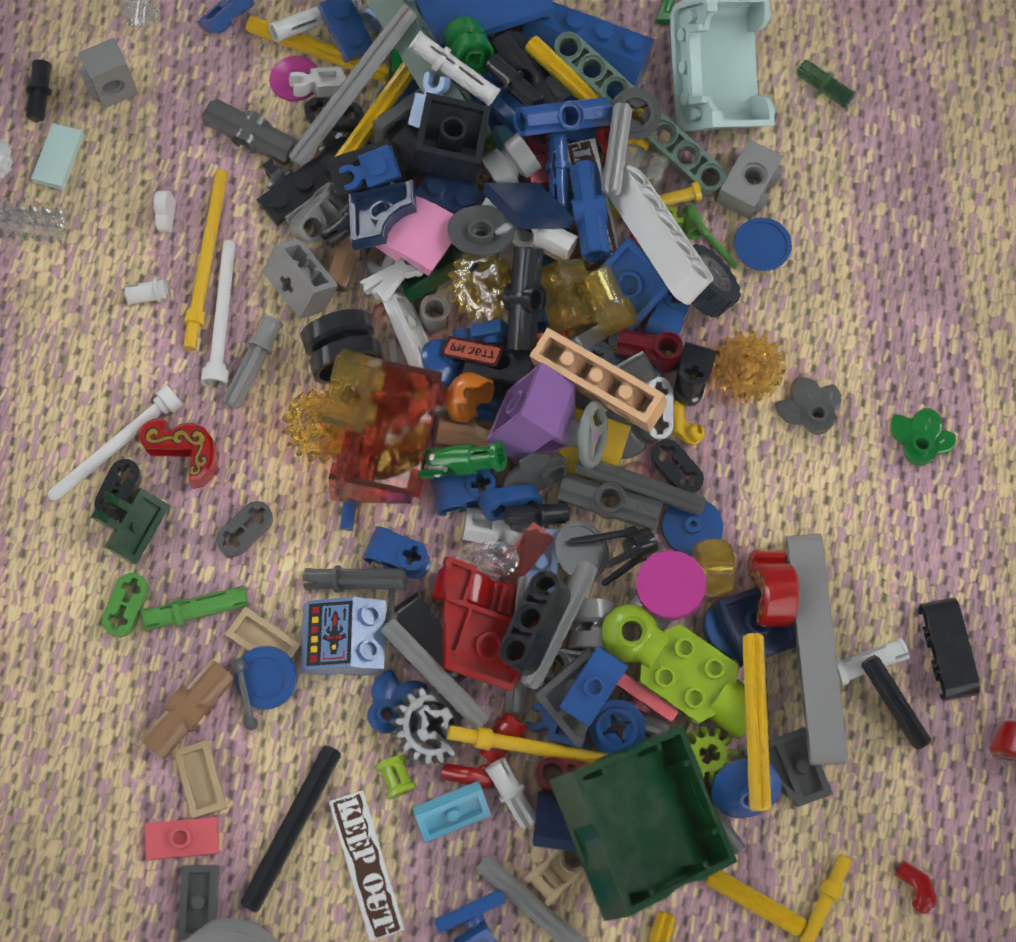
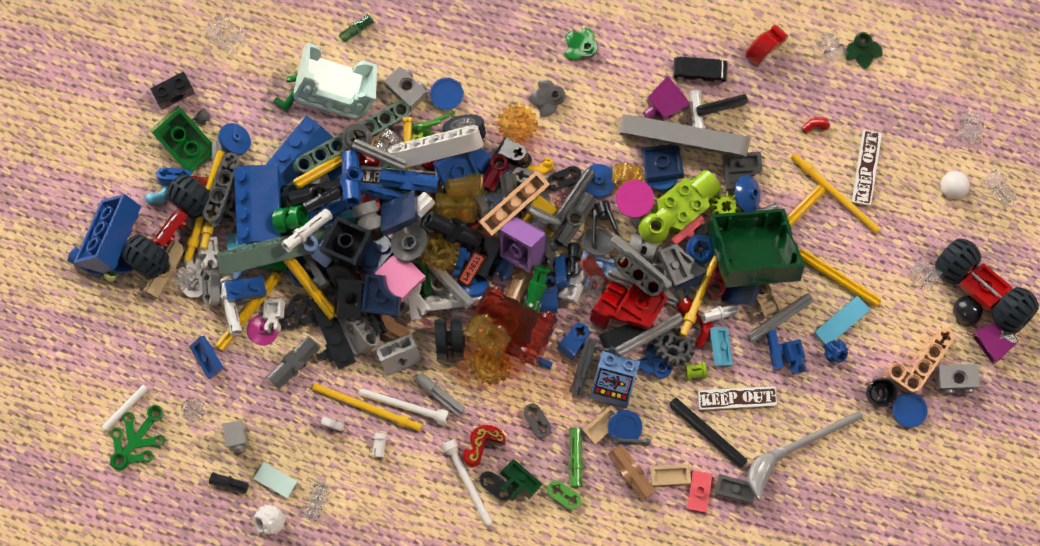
camera: 75 degrees left, 5 degrees up
(353, 84) = (292, 292): light grey axle -> none
(376, 169) = (353, 291): blue plate -> none
(430, 328) = (459, 293): none -> light grey axle
(466, 394) = (496, 279): orange hair -> none
(593, 686) = (679, 253): blue plate -> none
(756, 723) = (718, 176): yellow axle -> none
(777, 585) = (646, 144): red animal -> none
(869, 602) = (666, 101): none -> magenta torso

